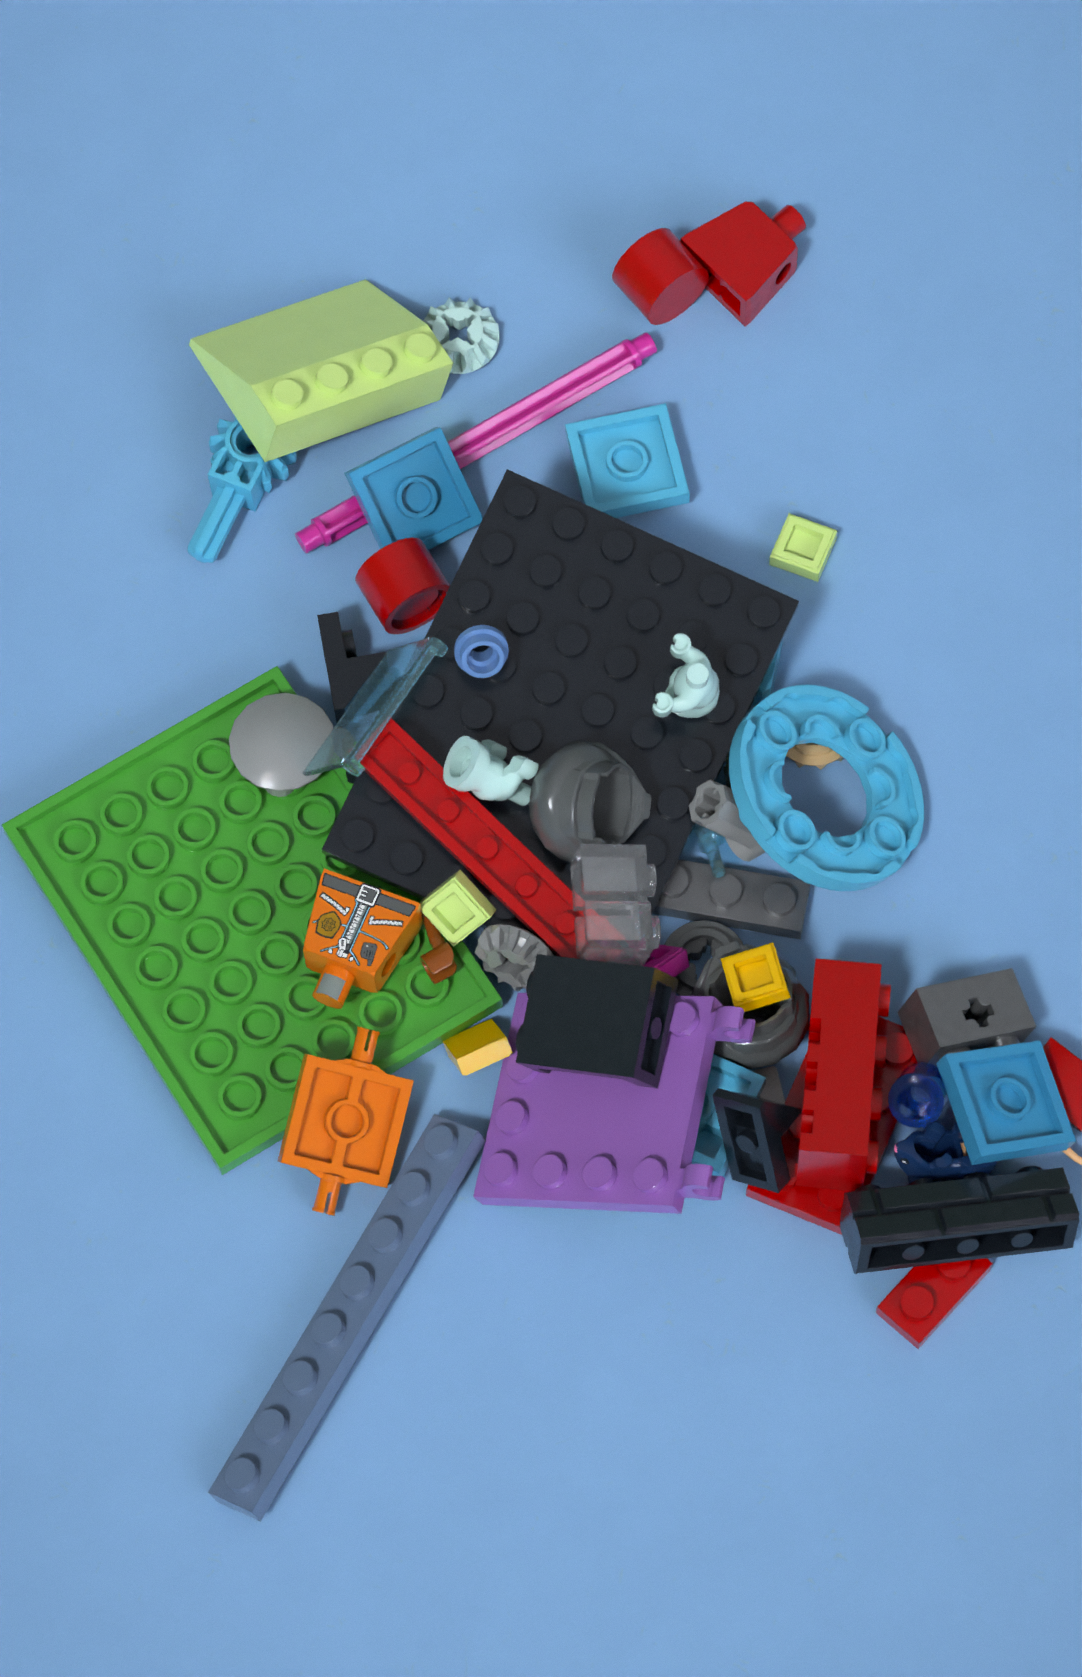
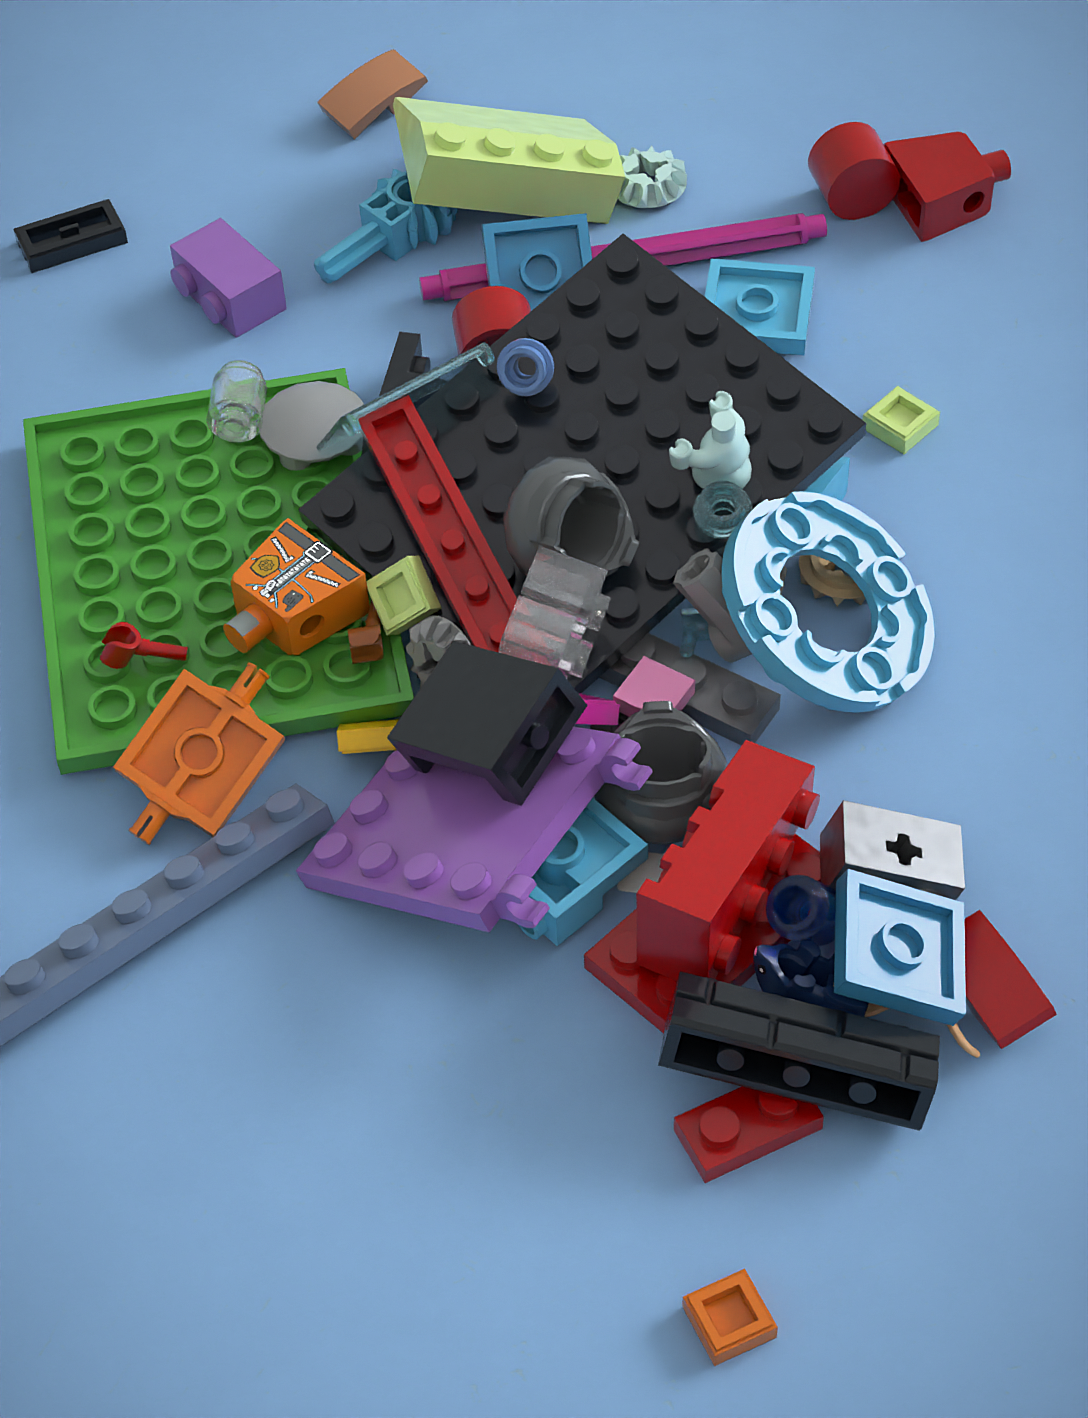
camera: 20 degrees right, 15 degrees down
(112, 595) = (227, 277): none -> medium lavender brick
(145, 316) = (371, 90): none -> nougat slope
(205, 747) = (237, 402): none -> clear brick
(235, 1035) = (125, 640): none -> red hand
(482, 770) = (479, 471): light aqua piece -> none
(703, 723) = (716, 497): none -> clear light blue plate
(707, 923) = (653, 682): none -> bright pink tile
(752, 1137) = (602, 884): black slope -> none
(755, 977) = (673, 737): yellow tile -> none
(981, 1454) = (729, 1317): none -> orange tile

